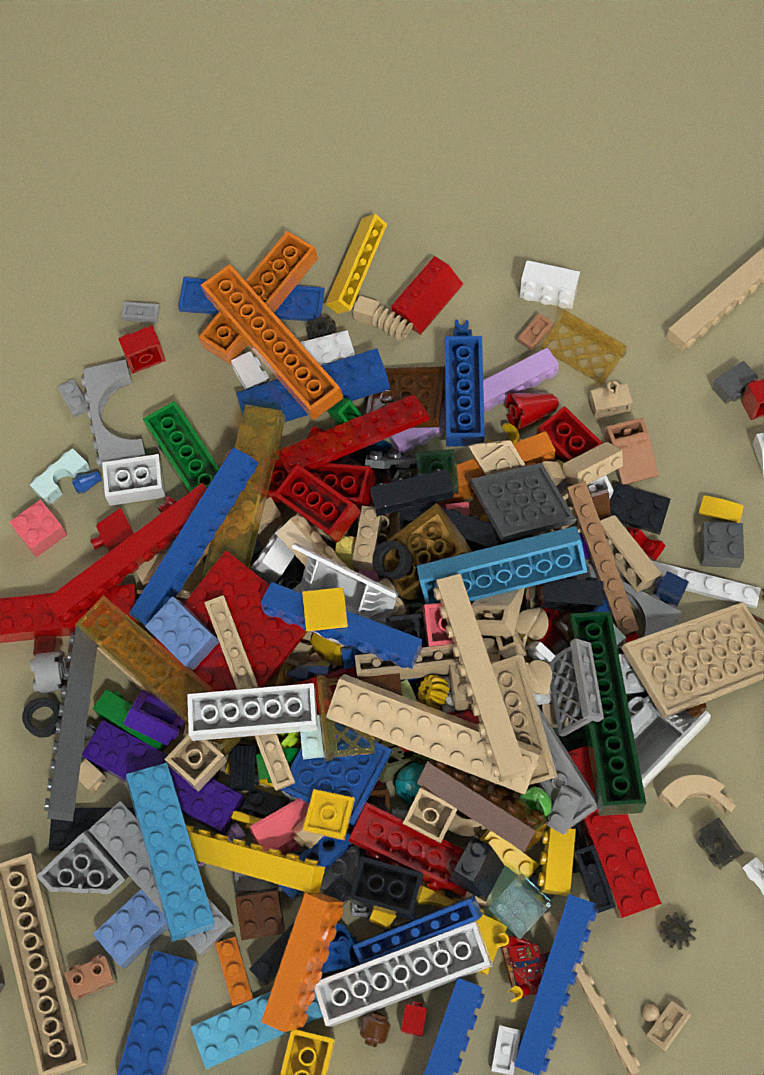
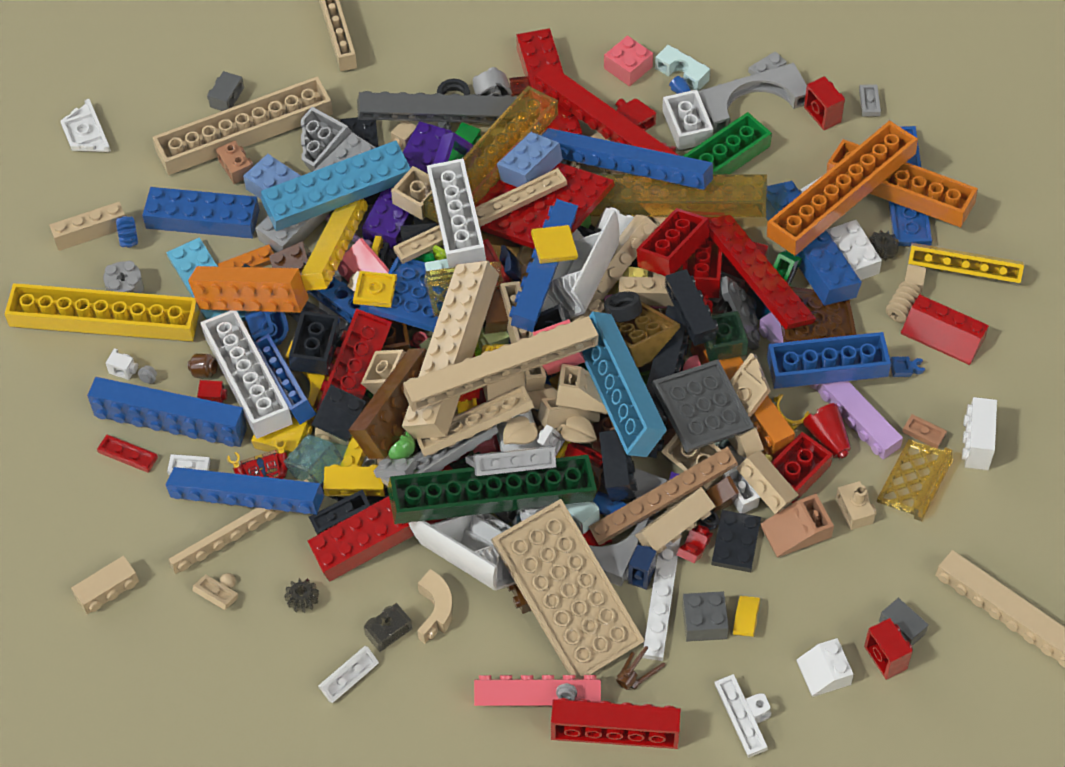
camera: 80 degrees right, 10 degrees down
(533, 990) = (262, 454): clear red hinge -> none

